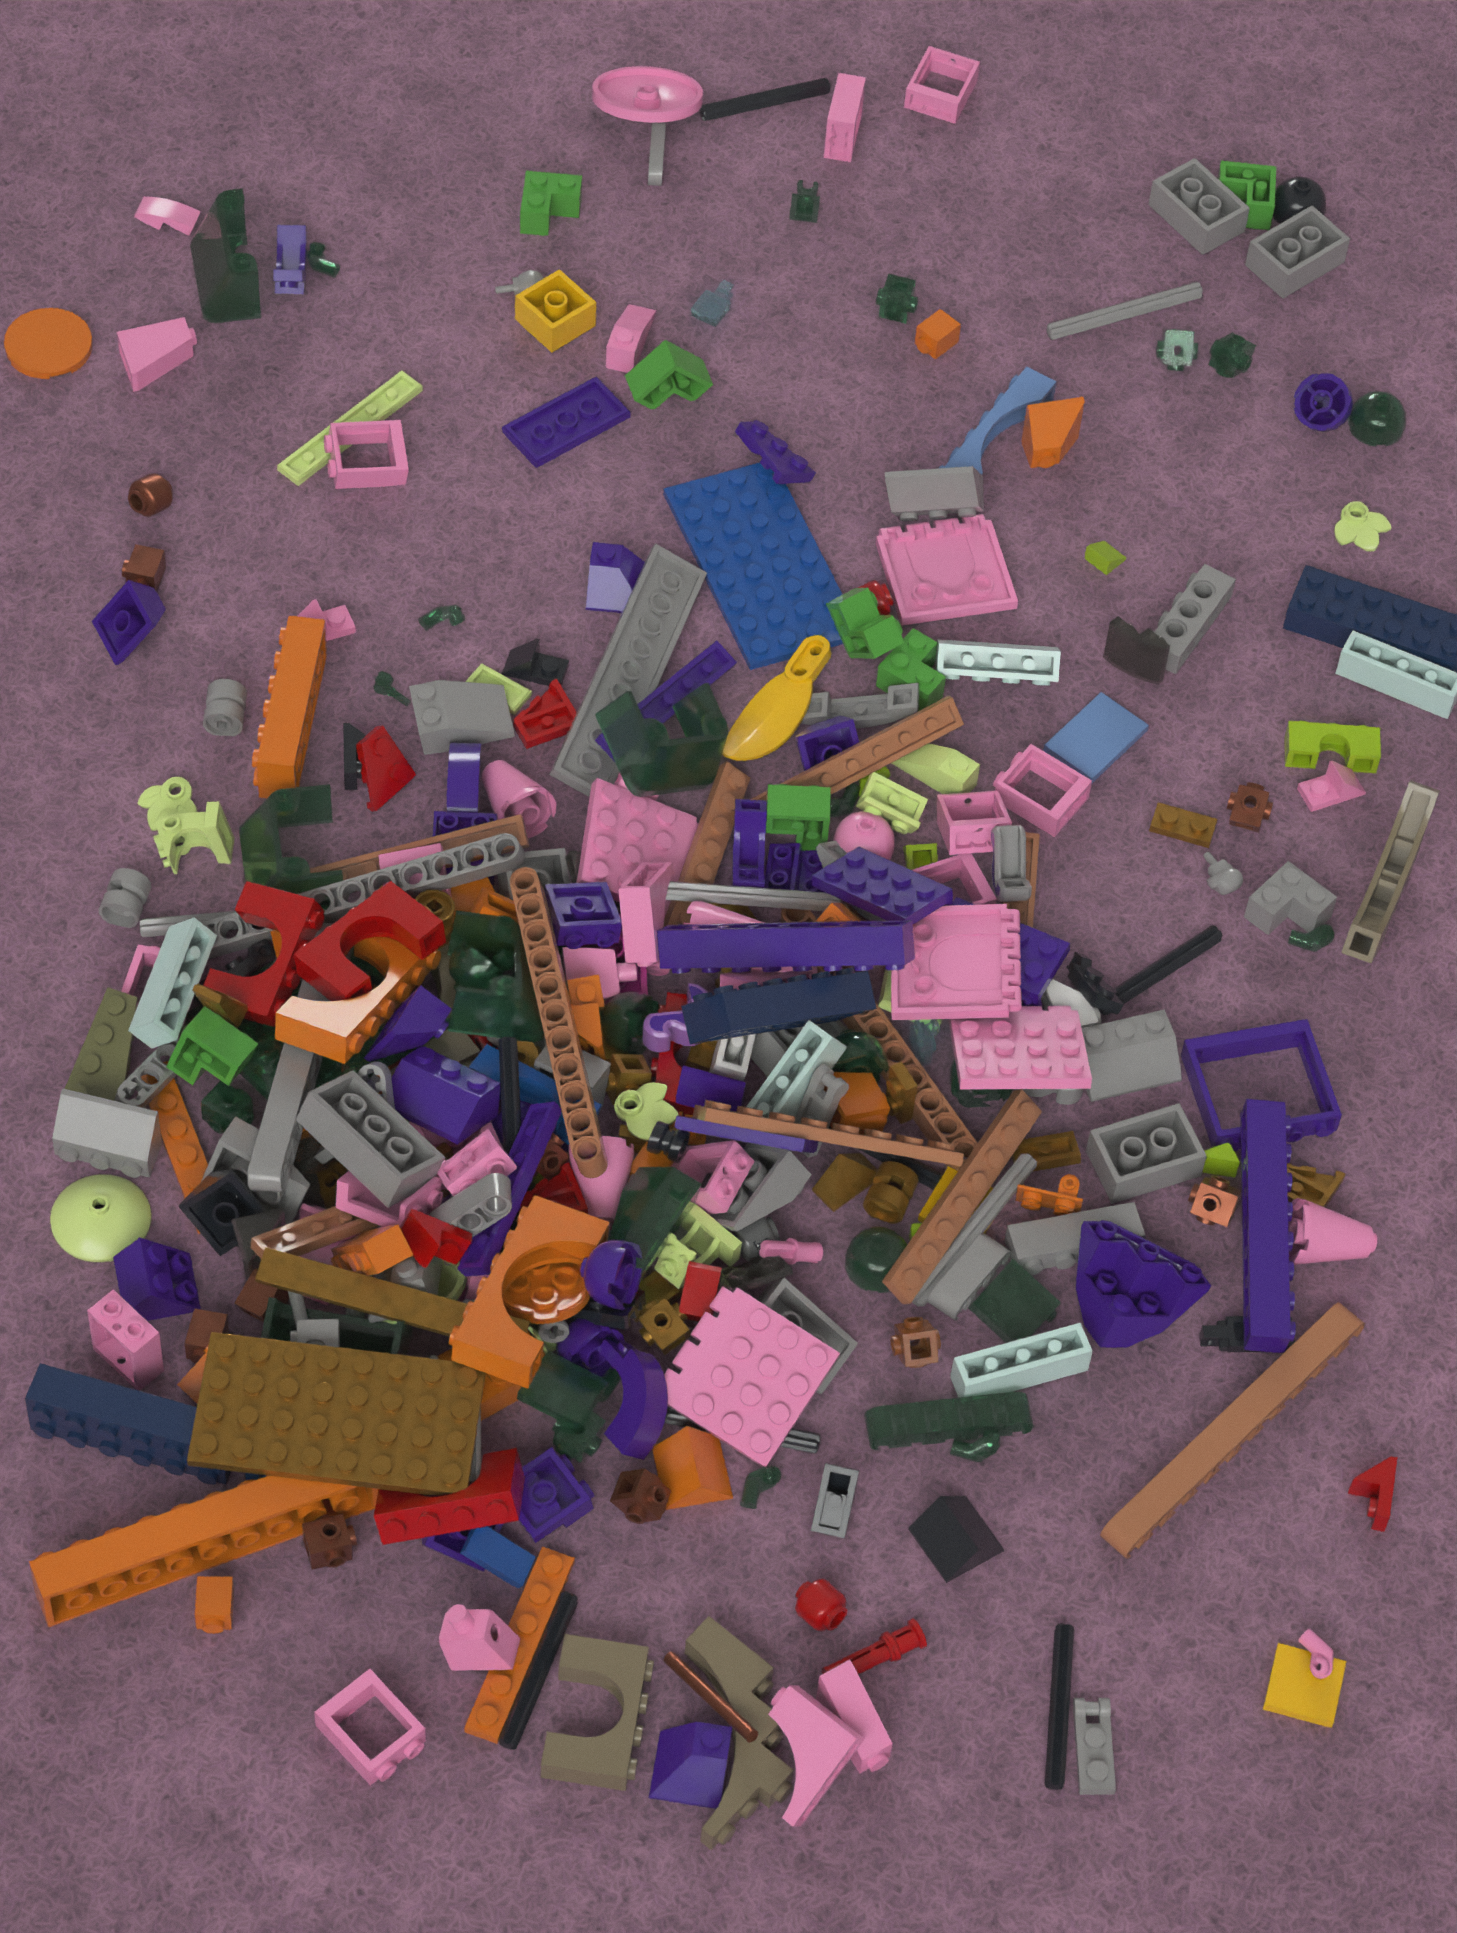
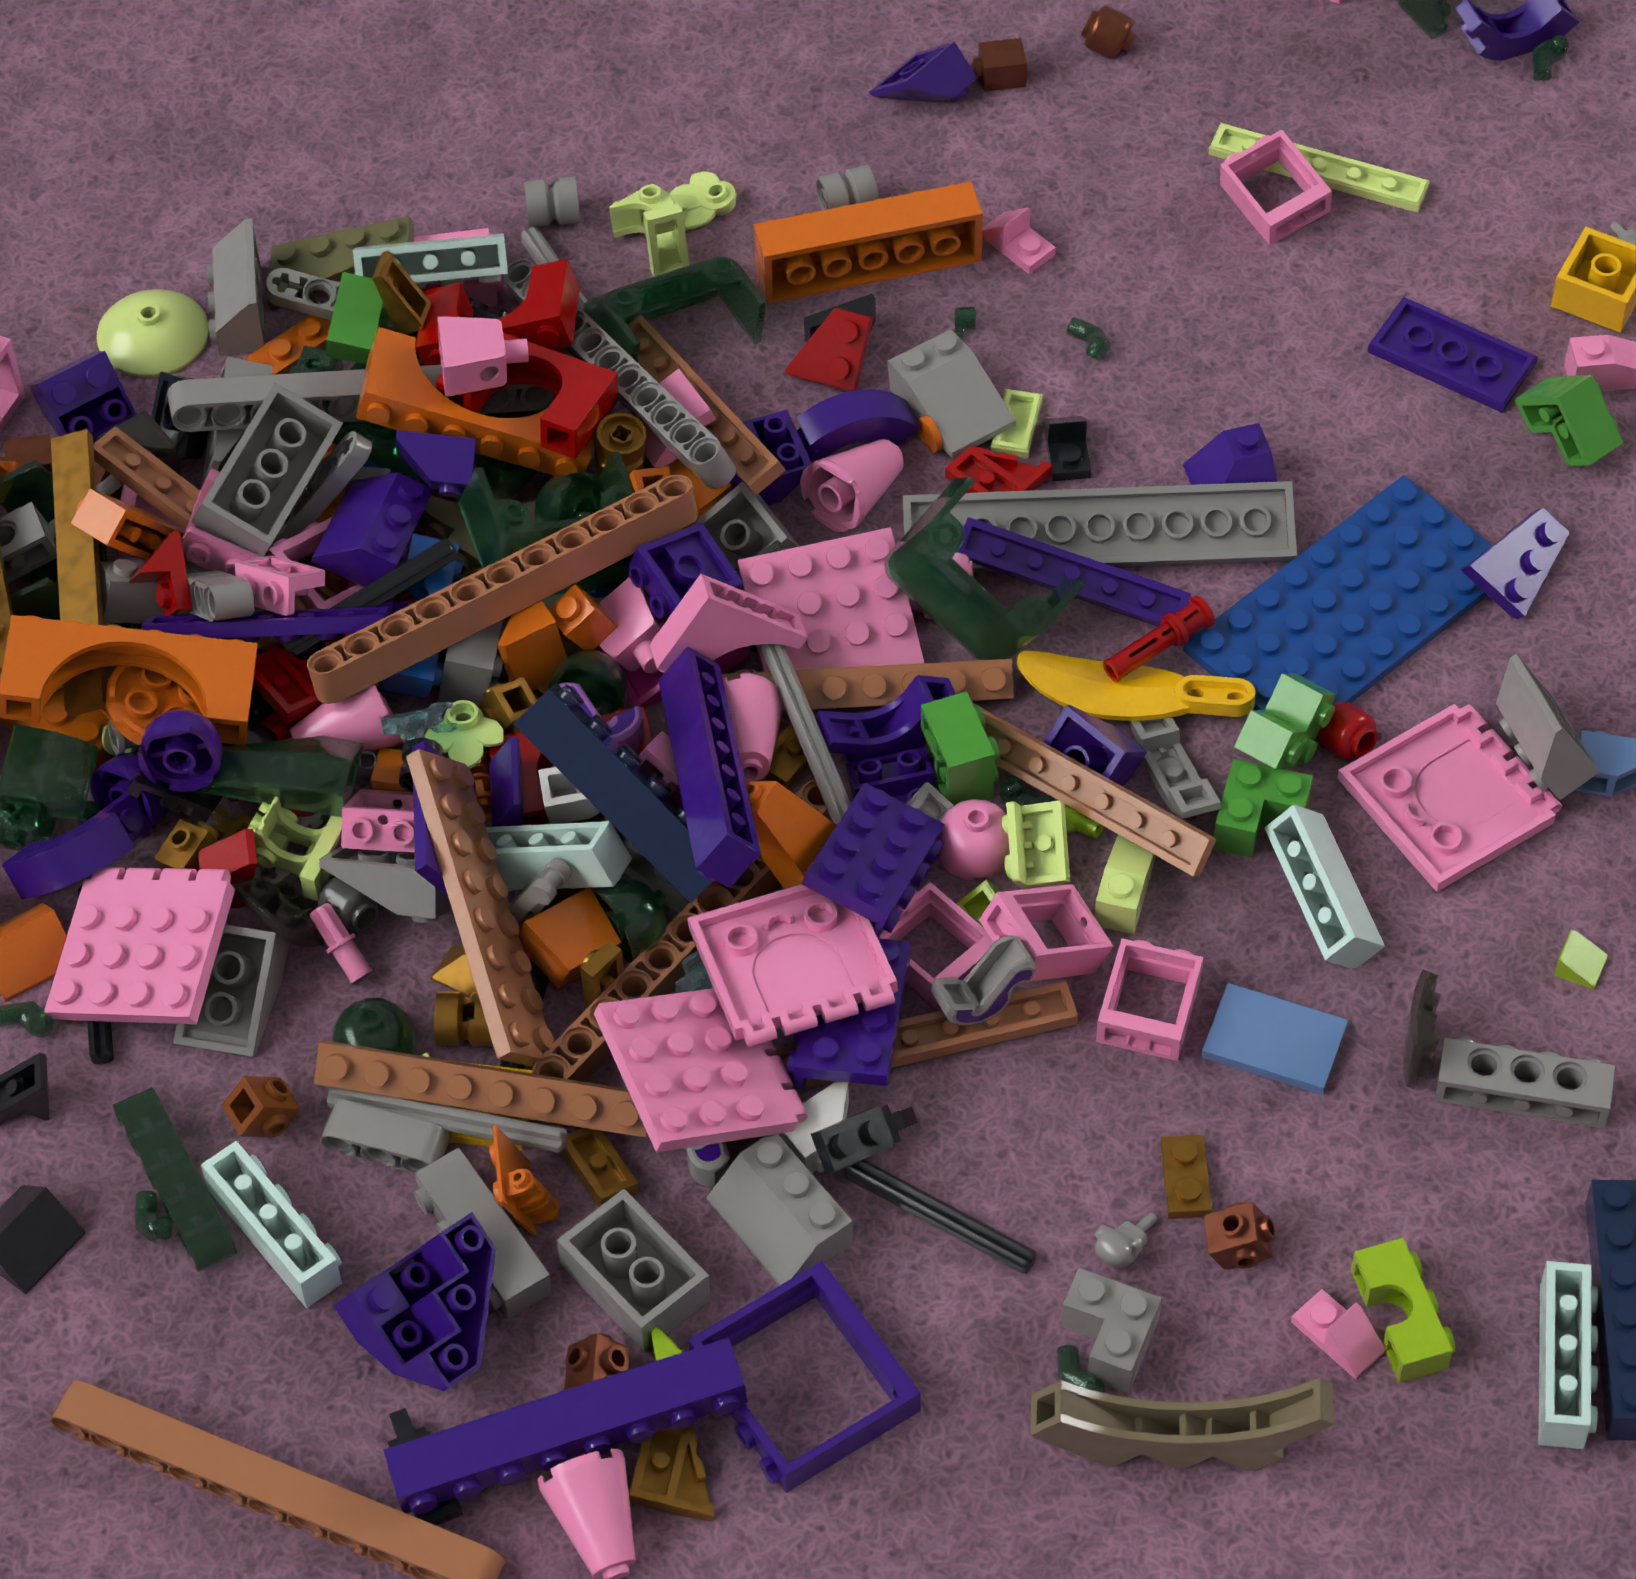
camera: 75 degrees right, 0 degrees up
(339, 957) = (476, 354): none -> bright pink torso
(490, 739) = (930, 434): none -> orange piece
(640, 1124) = (412, 723): none -> clear light blue plate
(746, 661) = (1173, 630): none -> red pin
(1015, 1304) = (365, 1201): clear green hinge -> none

